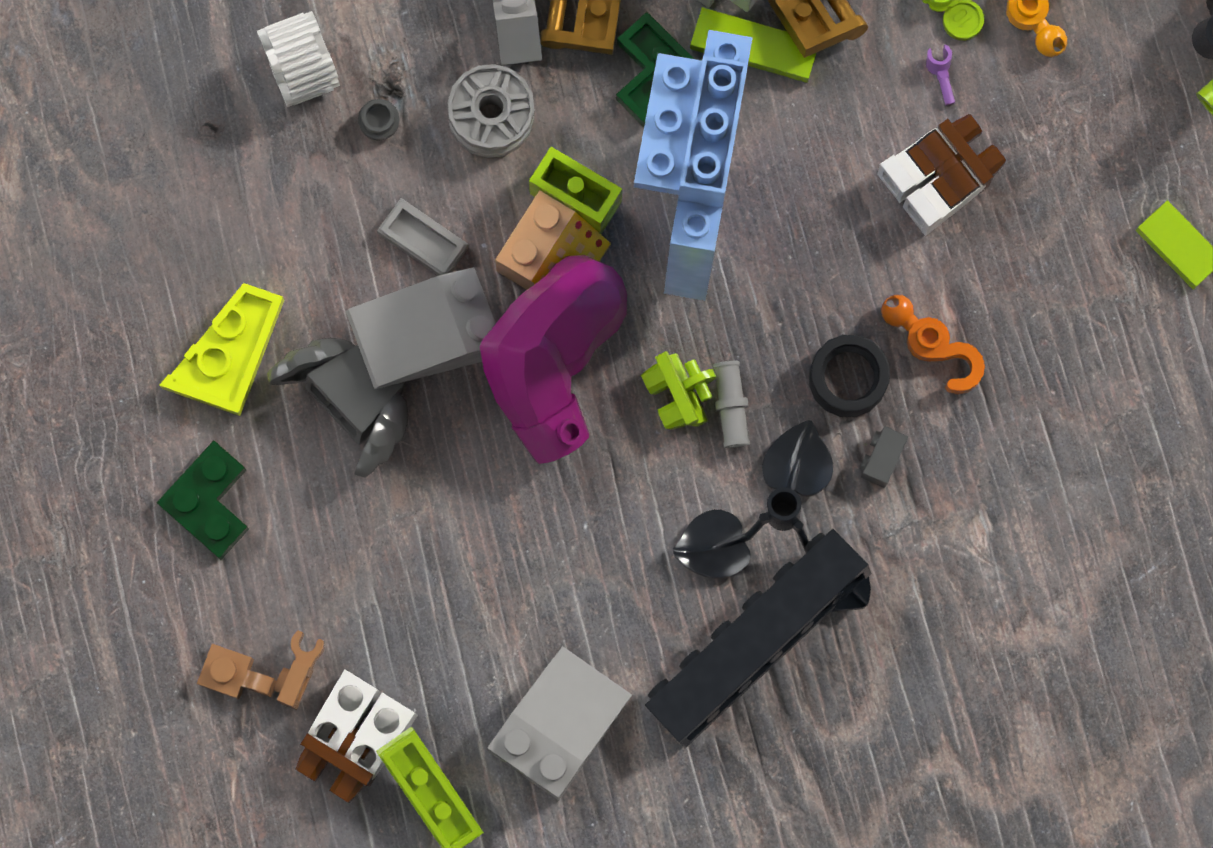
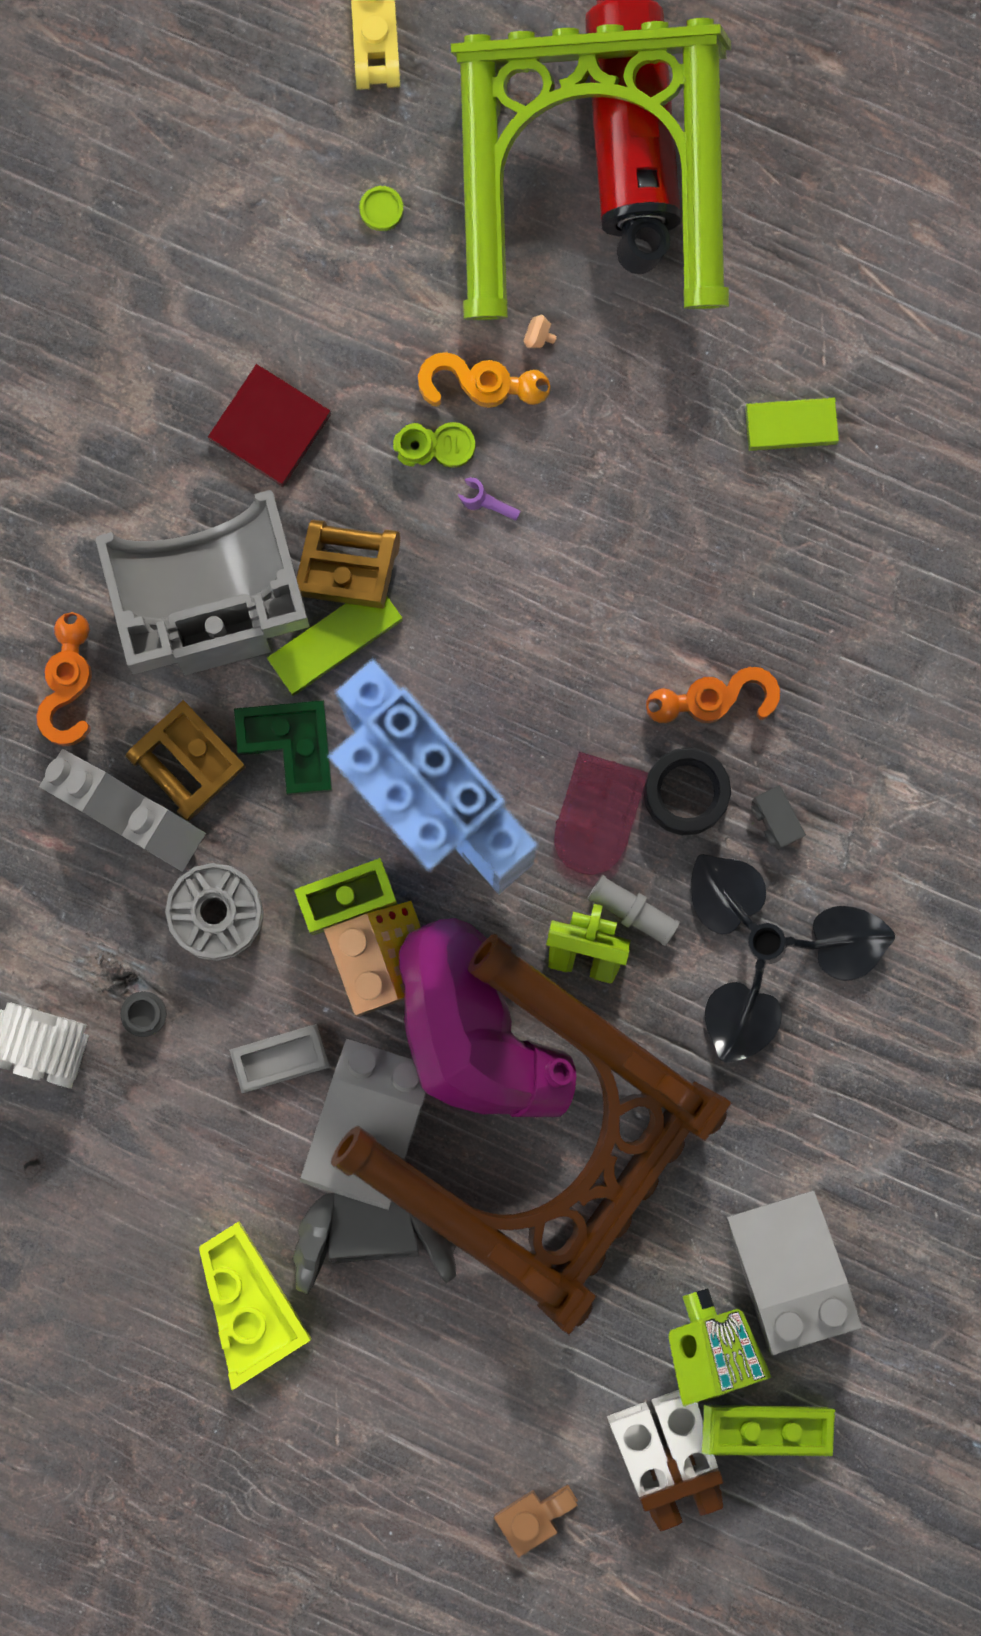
camera: 50 degrees left, 5 degrees up
(196, 497) = (358, 1436): dark green plate -> none
(294, 681) = (581, 1473): medium nougat plate -> none
(409, 465) = (478, 1233): none -> reddish brown arch
(456, 706) = (714, 1351): none -> lime torso
(758, 637) = (853, 1050): black brick -> none
(780, 326) = (597, 814): none -> clear pink window
(953, 164) = (577, 558): hips -> none
(1094, 15) = (538, 333): none -> light nougat rock

